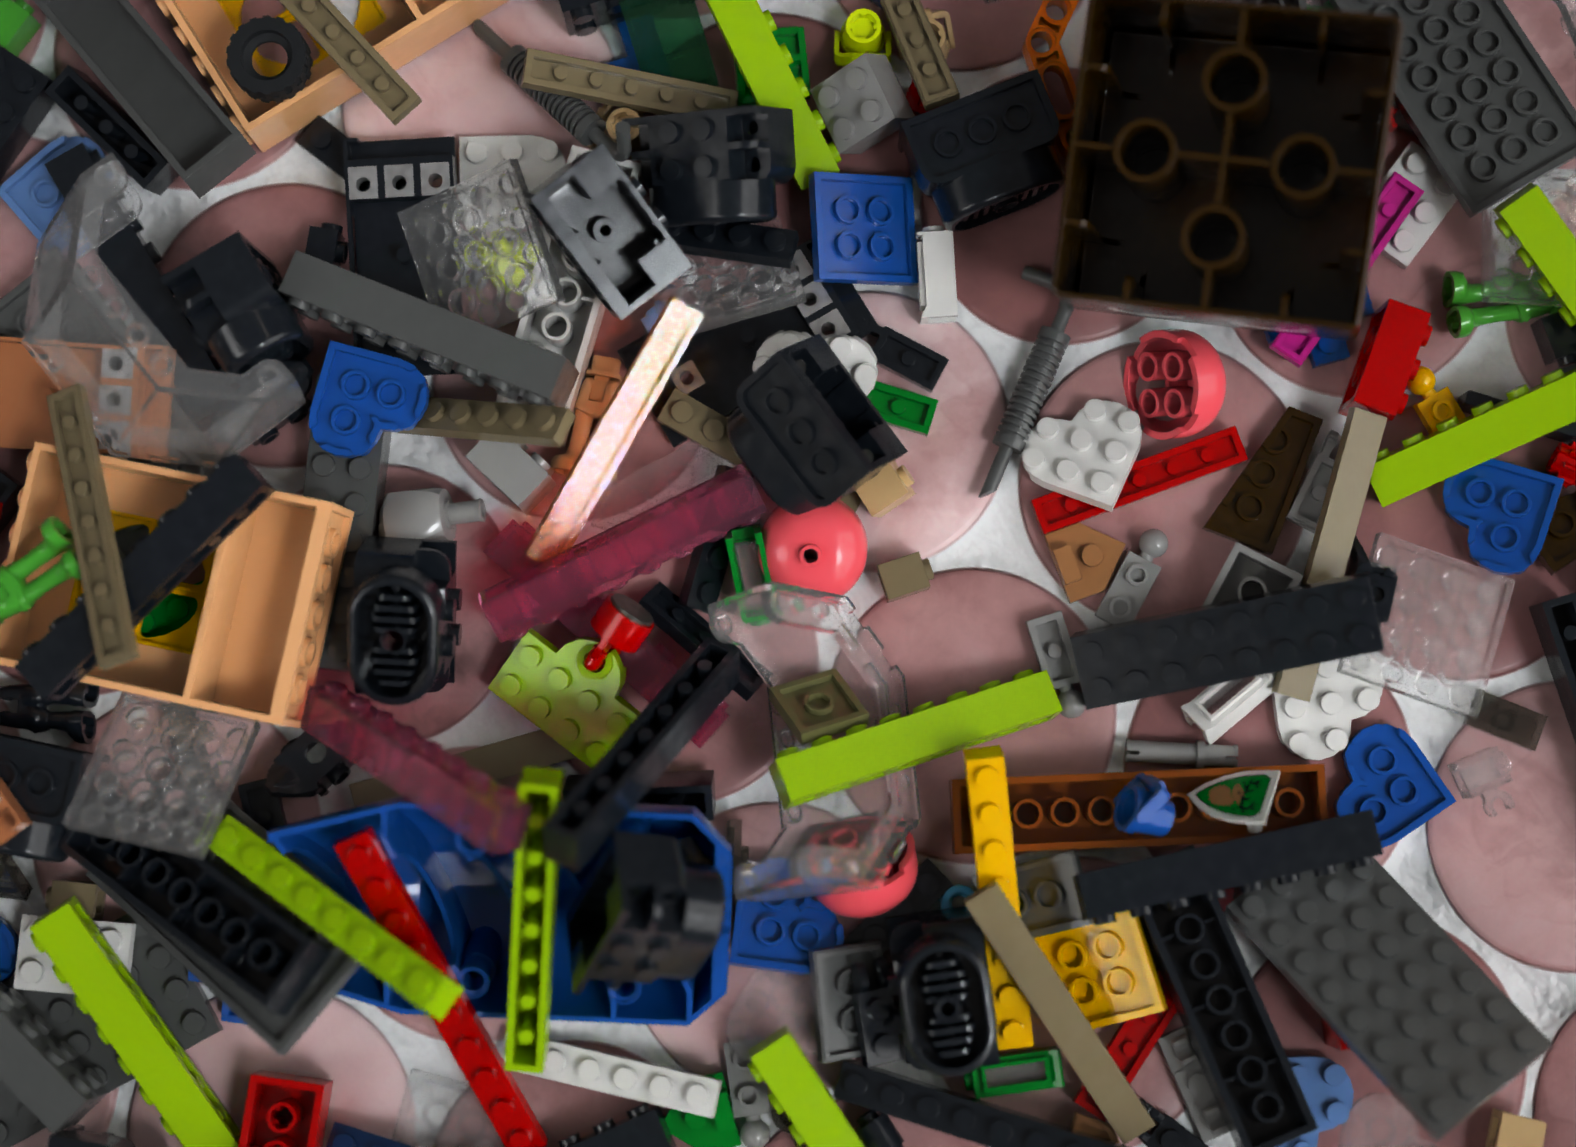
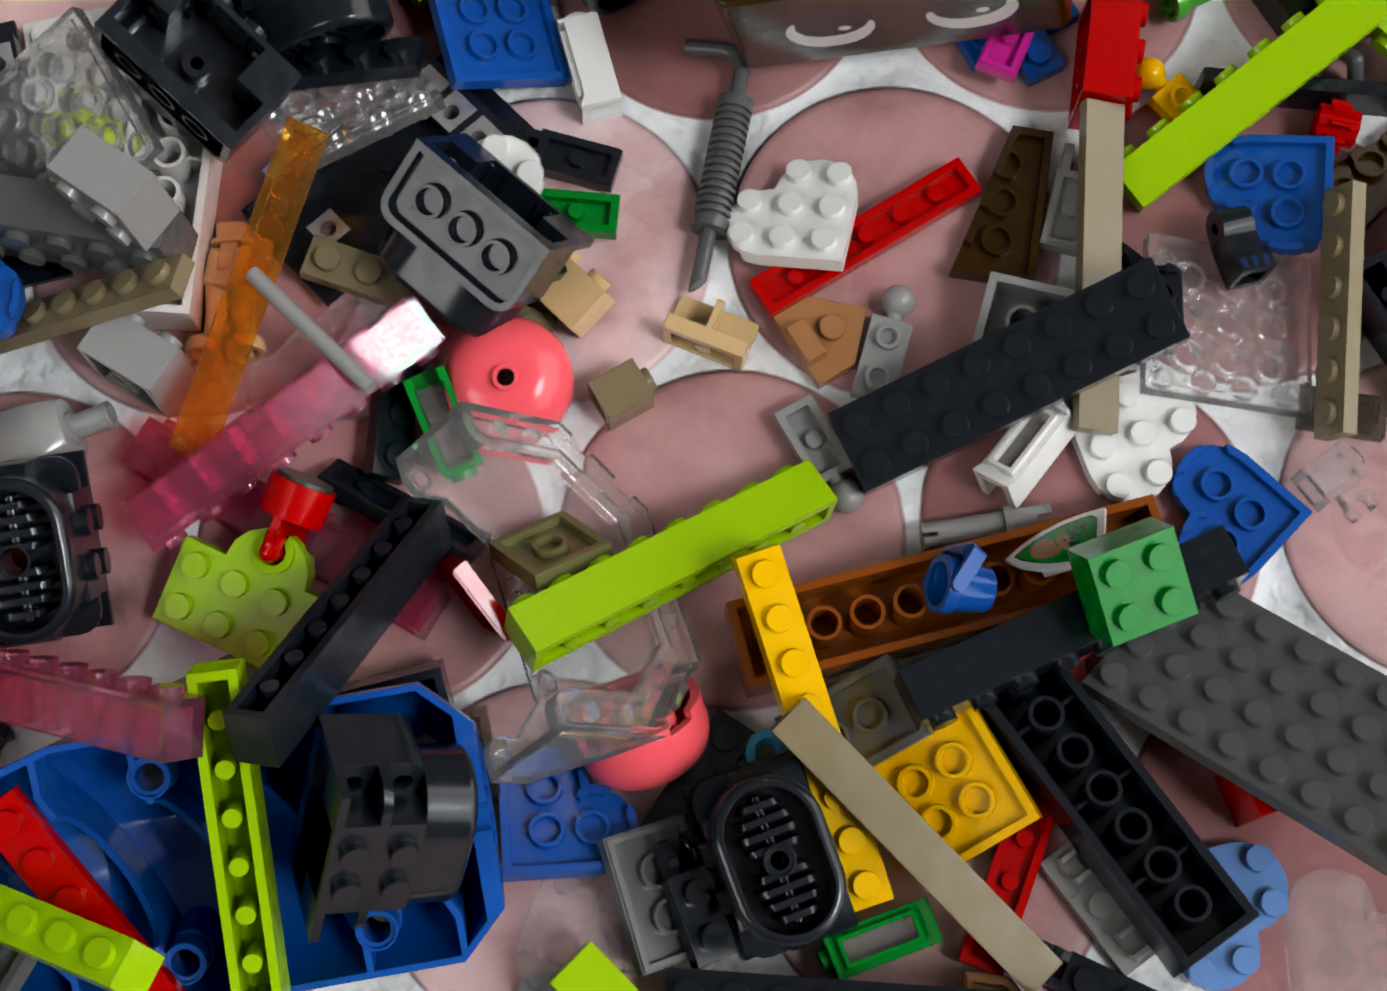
camera: 20 degrees left, 10 degrees down
(528, 356) = (112, 189): none -> light grey brick
(659, 486) = (311, 330): none -> light grey bar
(750, 730) = (474, 595): none -> tile
(990, 535) = (710, 332): none -> tan panel
(1192, 383) = (899, 115): coral cylinder -> none
(1281, 849) = (1132, 581): none -> green brick
(1452, 562) = (1238, 248): none -> black leg
(1524, 638) = (1340, 311): none -> dark tan plate

